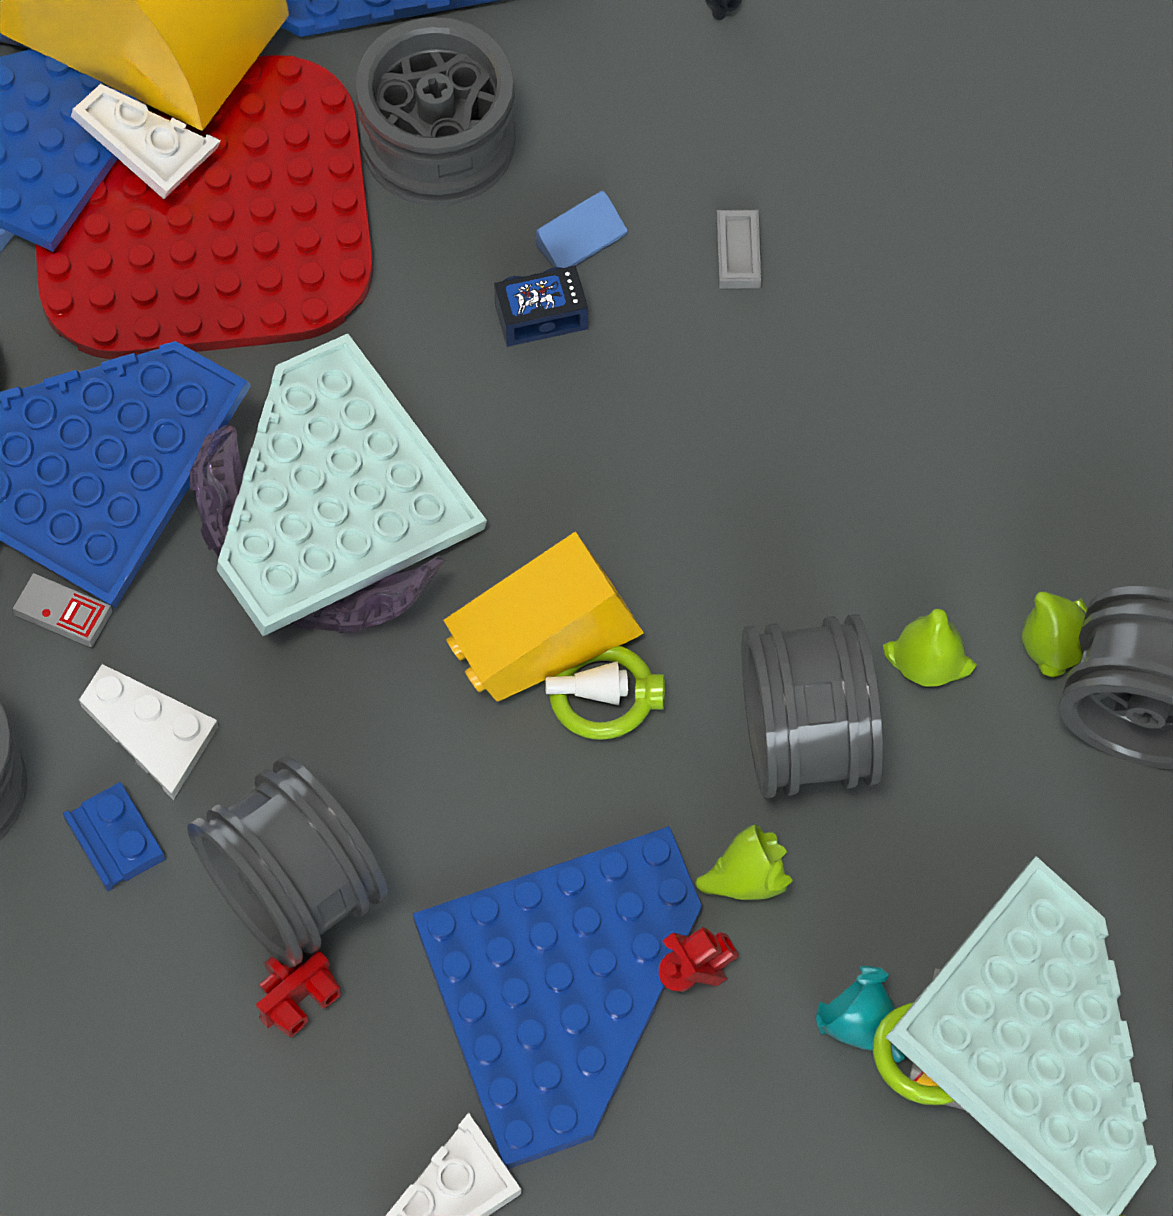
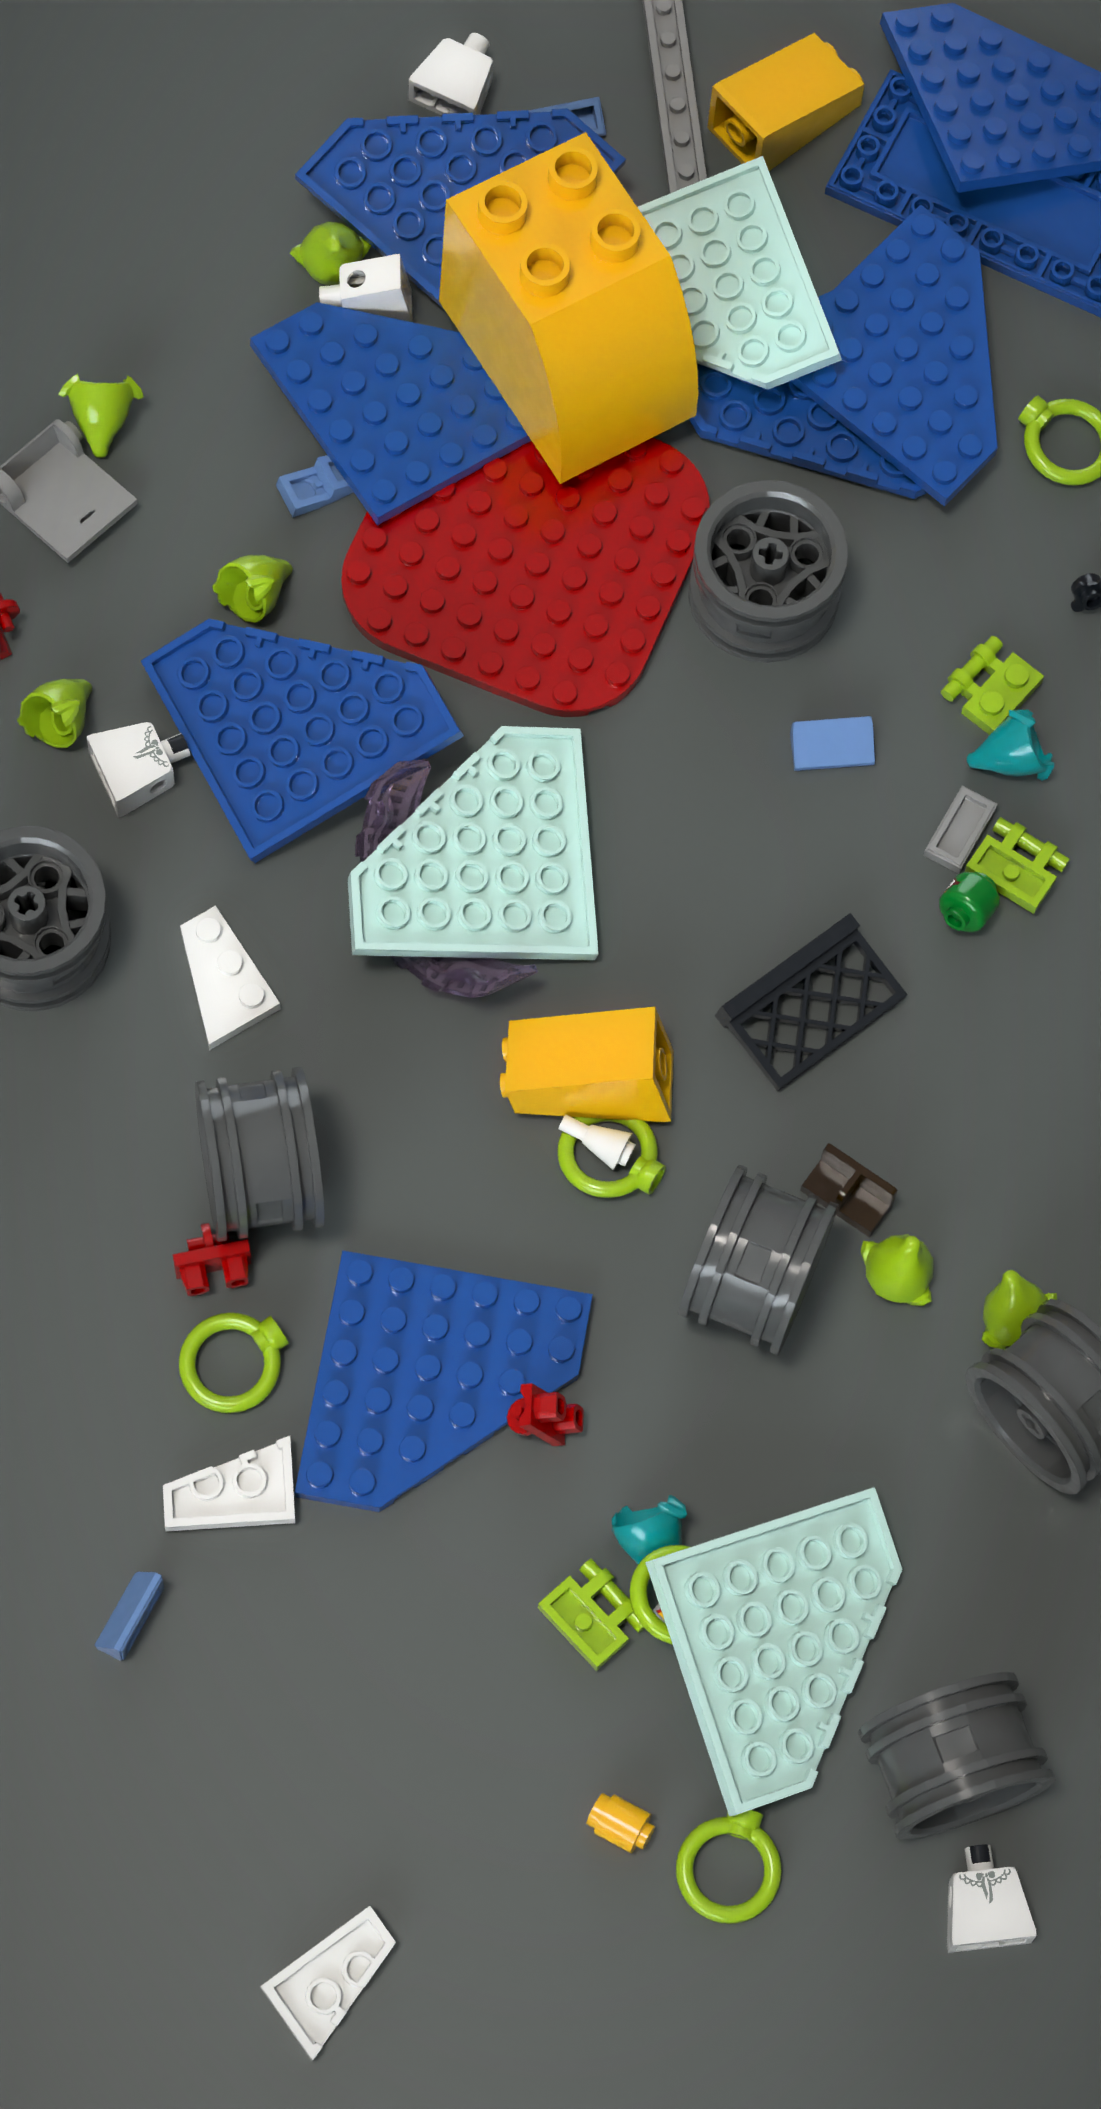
camera: 25 degrees right, 5 degrees up
(62, 610) = (210, 842): light grey tile -> none
(114, 836) = (144, 1054): blue plate -> none
(146, 143) = (505, 468): white wing -> none
(390, 1033) = (266, 1336): none -> lime piece
(541, 305) = (757, 790): brick -> none
(667, 454) = (792, 972): none -> black fence
(701, 116) = (1005, 689): none -> lime plate
(743, 155) = (1013, 749): none -> teal hat
(748, 868) = (635, 1364): lime hat -> none
(788, 300) = (970, 900): none -> green head
(805, 260) = (1014, 874): none -> lime plate
(840, 596) = (857, 1190): none -> dark brown panel
(851, 1131) = (583, 1621): none -> lime plate

